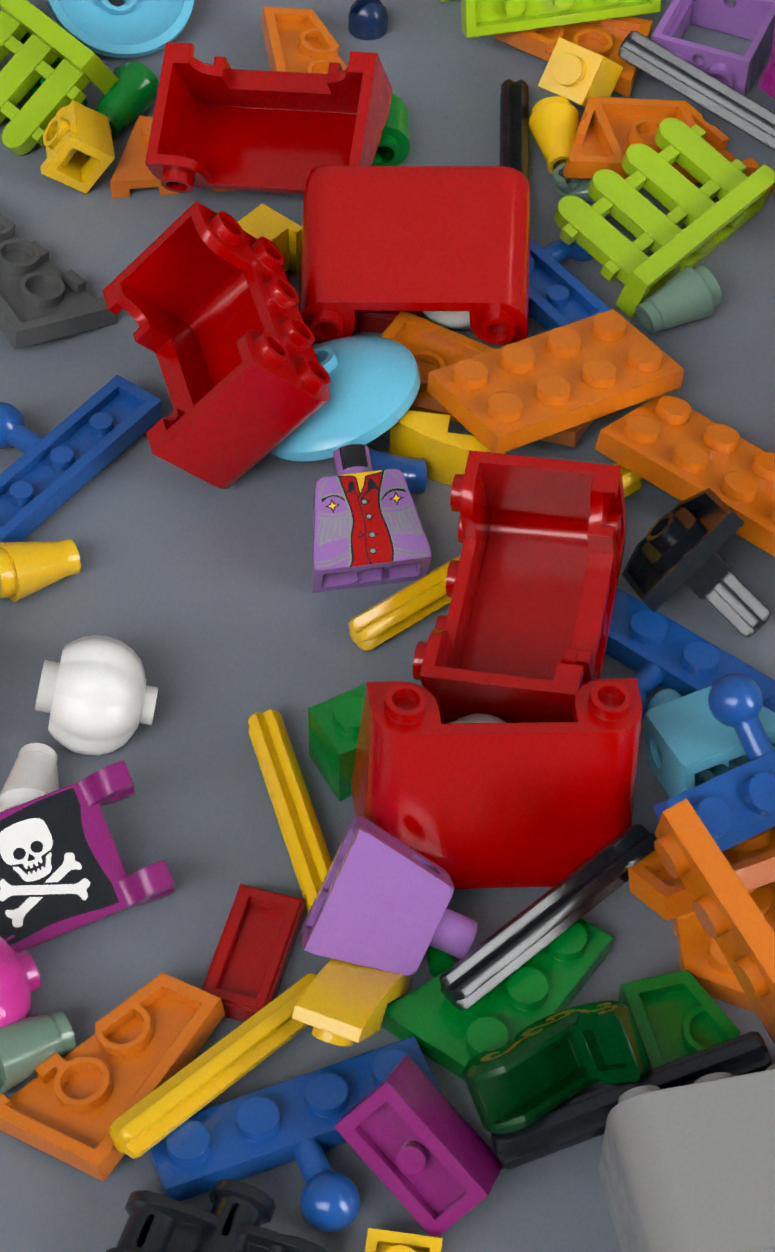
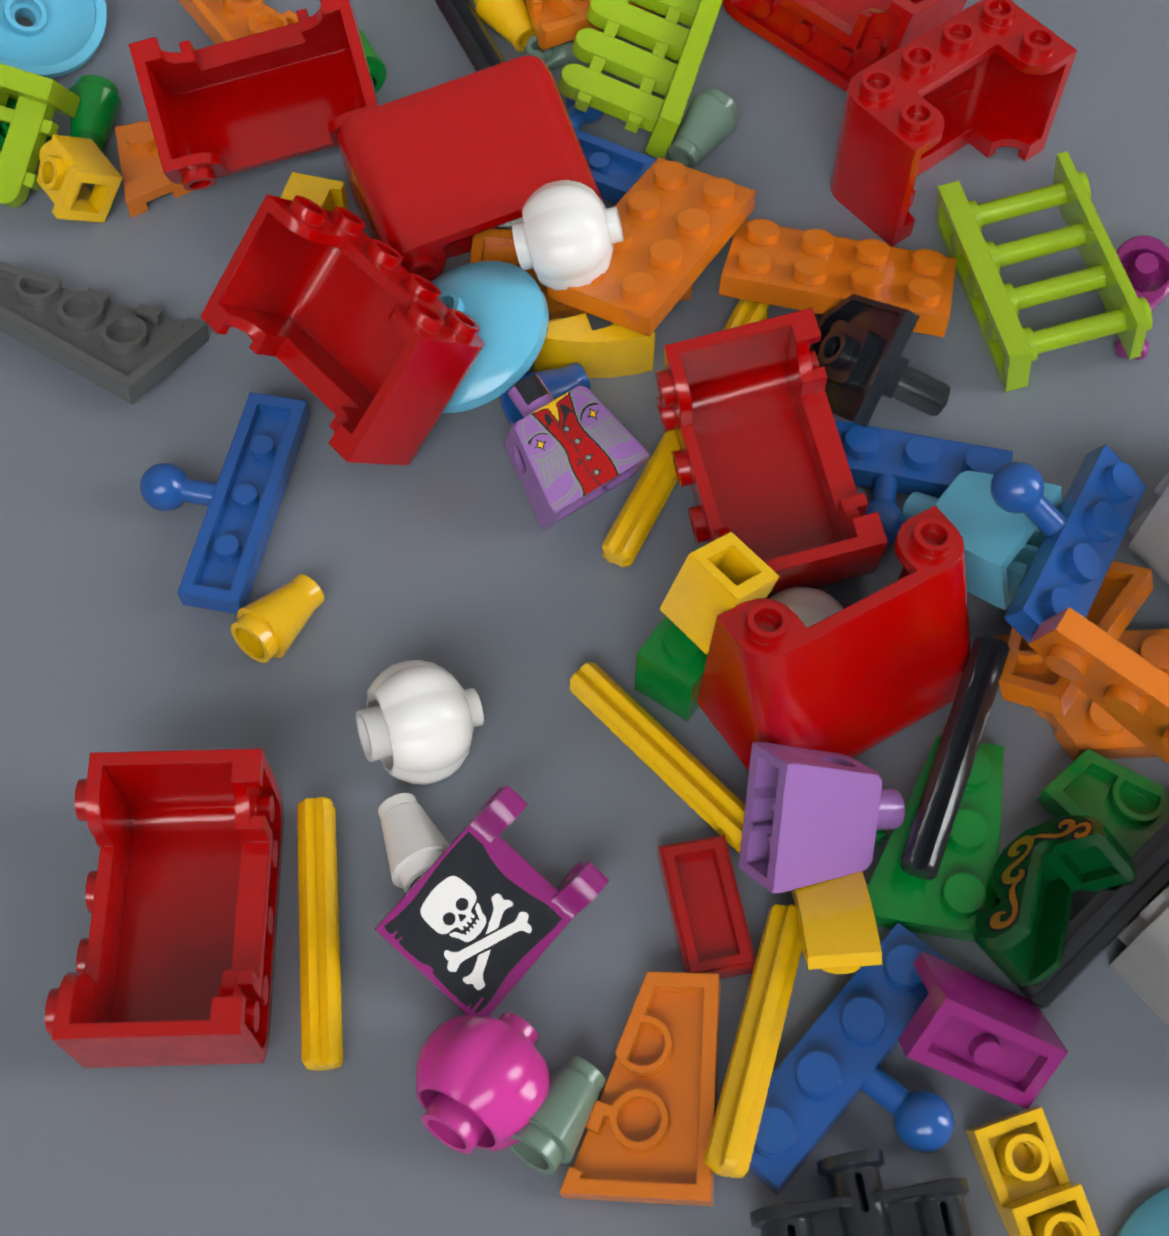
camera: 25 degrees left, 10 degrees up
(394, 654) = (713, 583): none -> yellow brick
(463, 337) = (566, 235): none -> white plant

